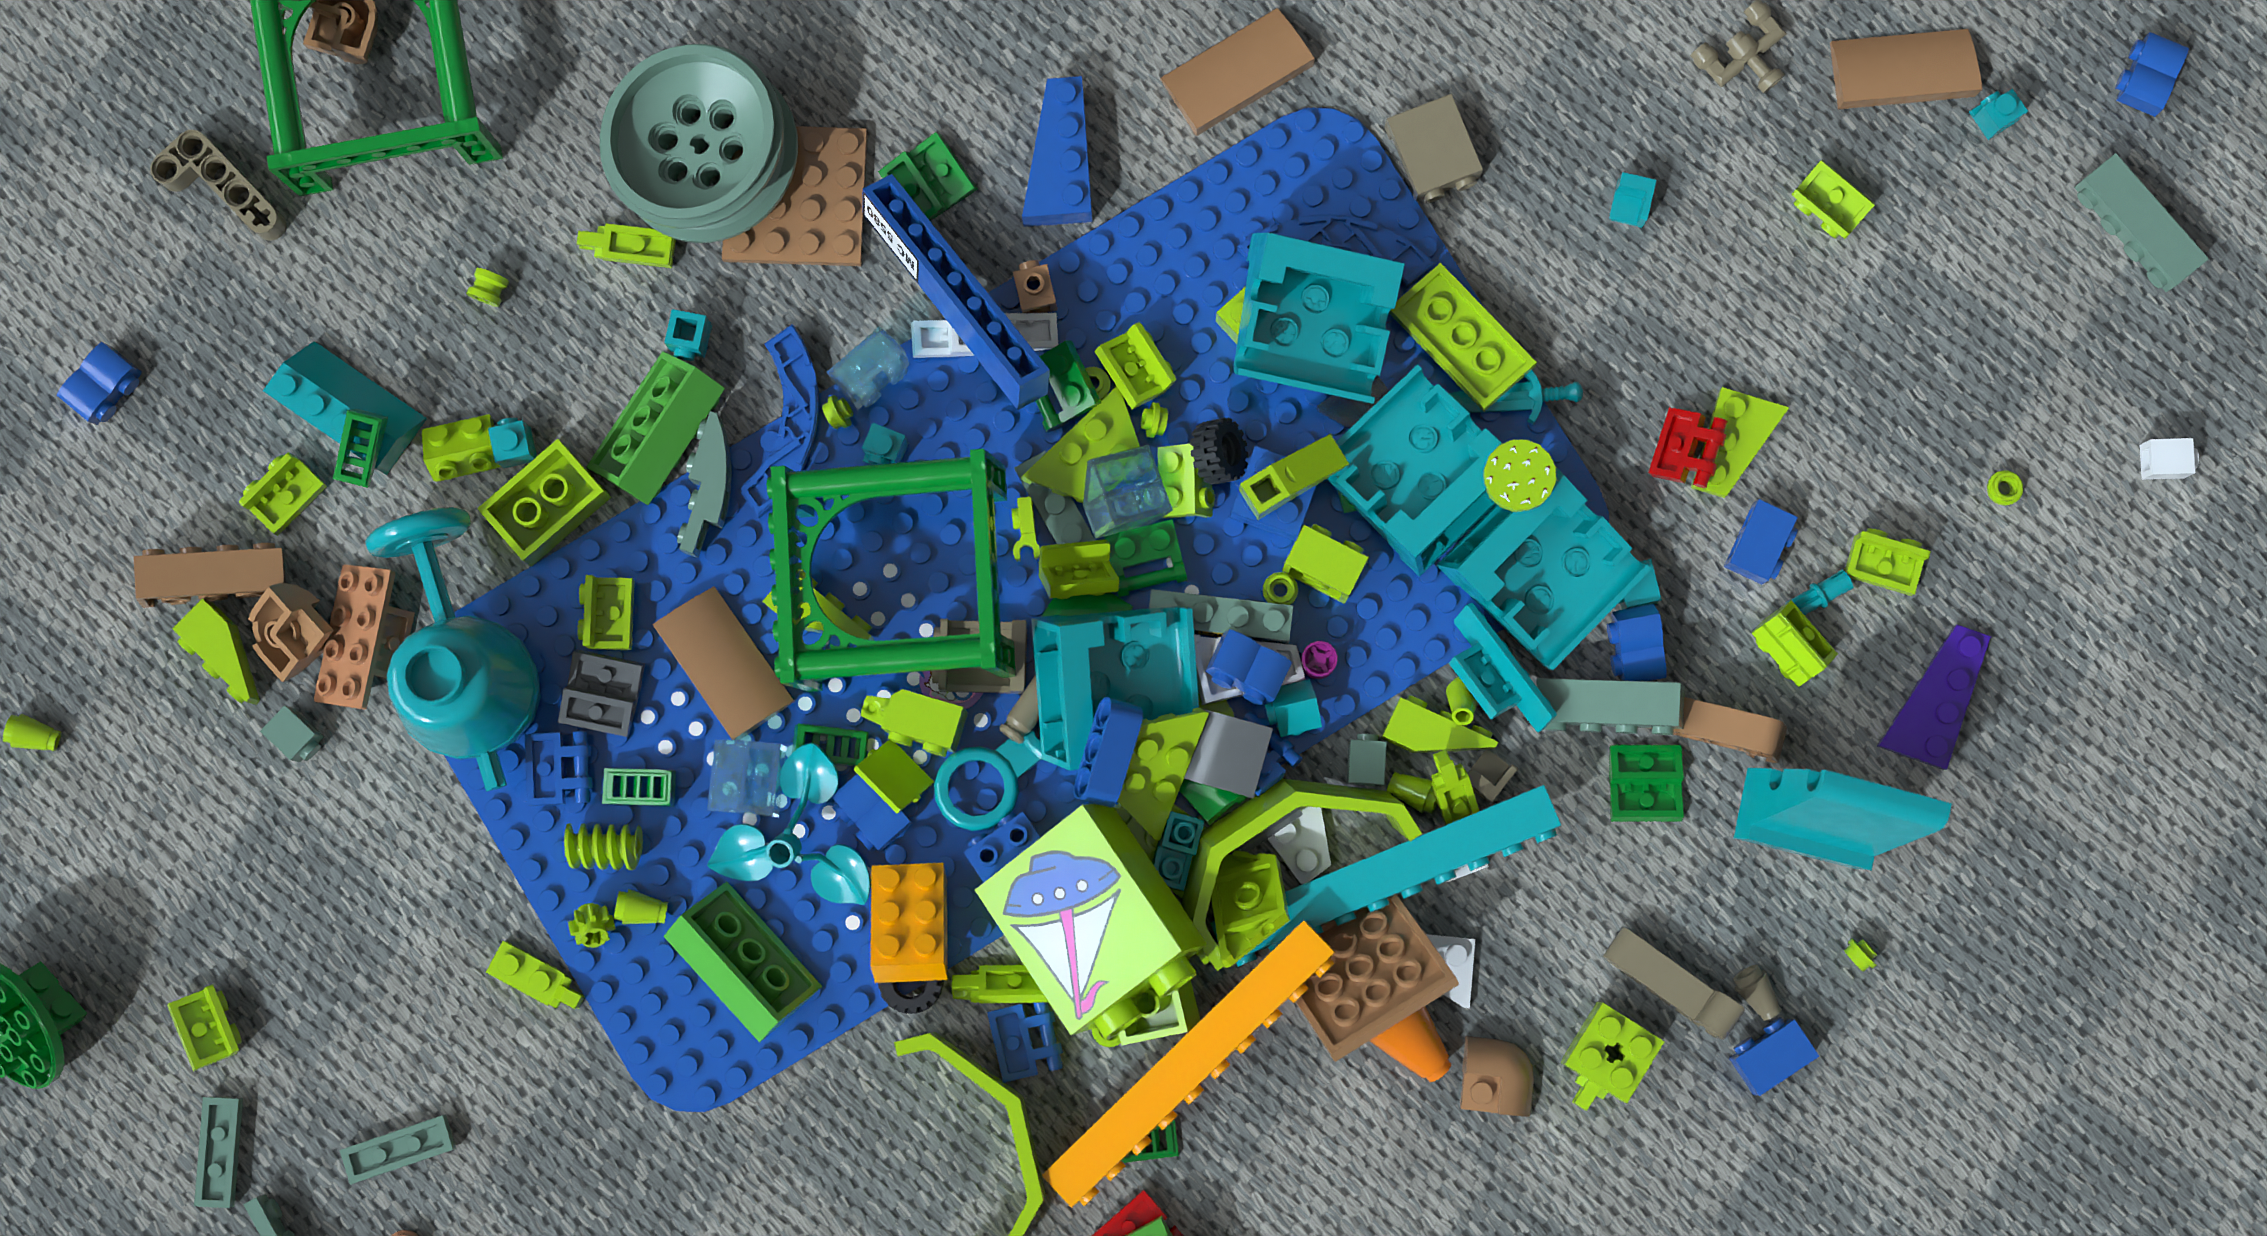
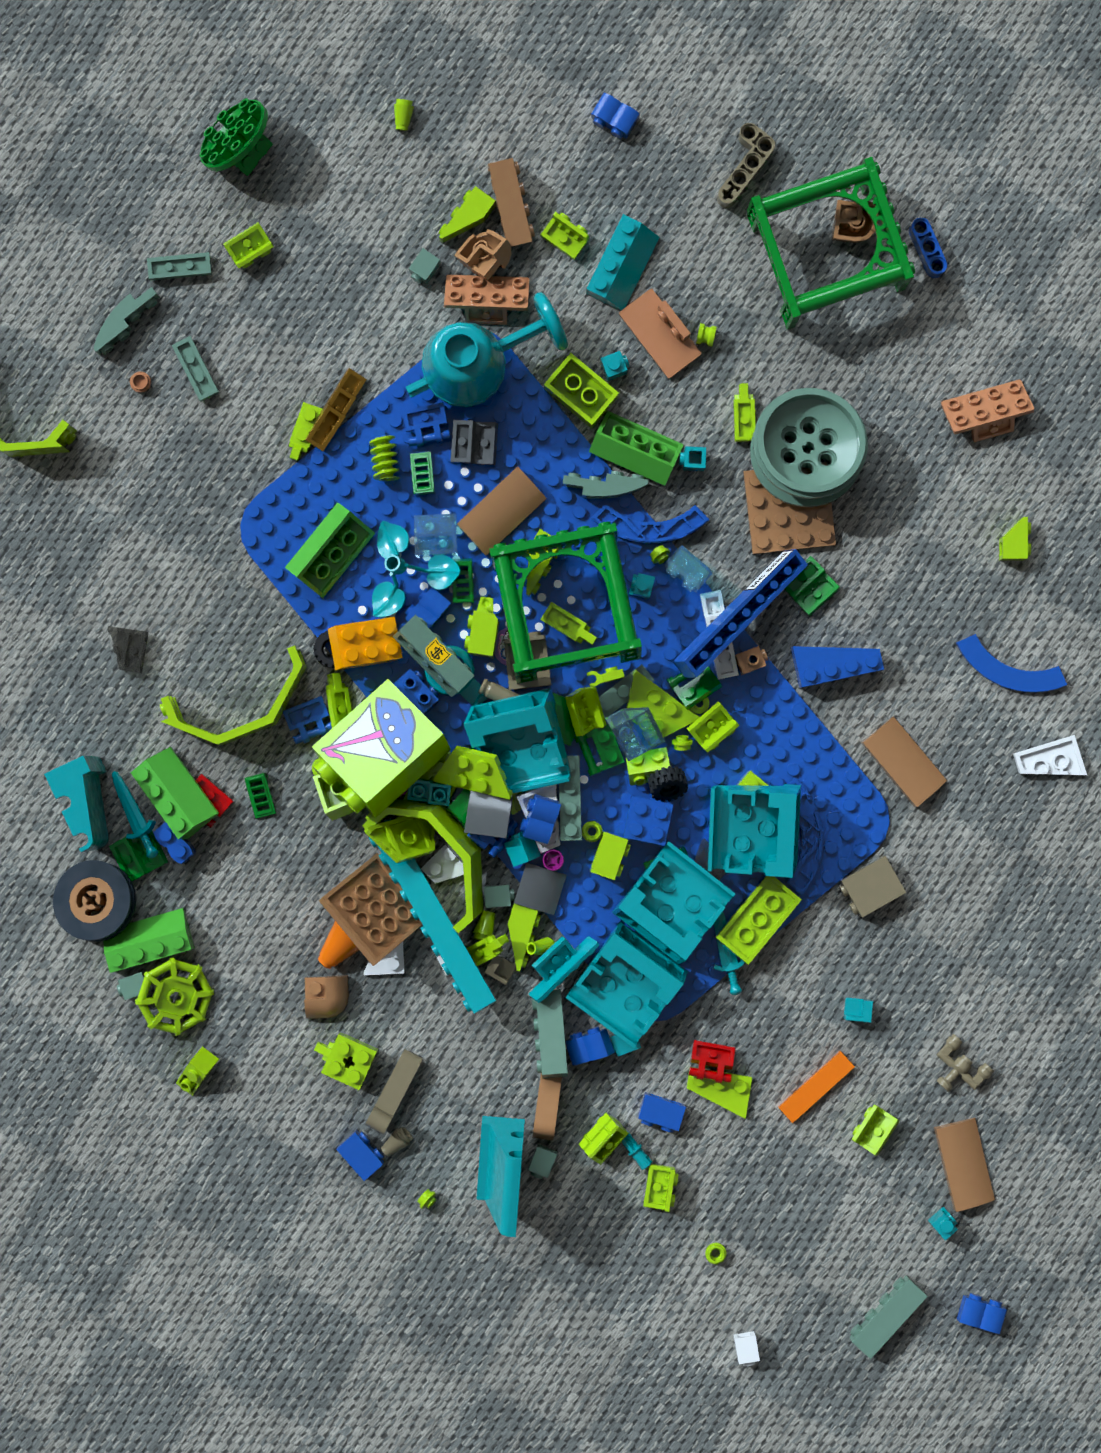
camera: 80 degrees right, 5 degrees up
(372, 450) = (613, 286): green slope -> none
(458, 448) = (607, 334): lime bracket -> none
(471, 360) = (660, 333): none -> nougat bracket
(507, 918) = (335, 409): none -> pearl gold slope
(591, 925) = (338, 459): lime gear -> none
(606, 613) = (521, 438): lime bracket -> none
(639, 908) = (351, 485): lime cone -> none
(893, 776) = (449, 621): lime piece -> none
(930, 579) = (567, 624): none -> lime hinge
(947, 808) = (433, 655): none -> sand green brick
(1108, 752) = (476, 744): blue beam -> none
(1189, 1064) = (307, 817): light orange brick -> none
(1292, 476) = (656, 829): lime slope -> none
(1364, 689) = (540, 888): none -> dark grey slope
(1519, 475) = (674, 962): lime tile -> none
(1646, 783) = (509, 1061): green slope -> none
(1749, 286) = (816, 1086): none -> orange tile
(1820, 750) = (542, 1161): none -> sand green brick
(1936, 708) = (579, 1227): dark purple wing -> none

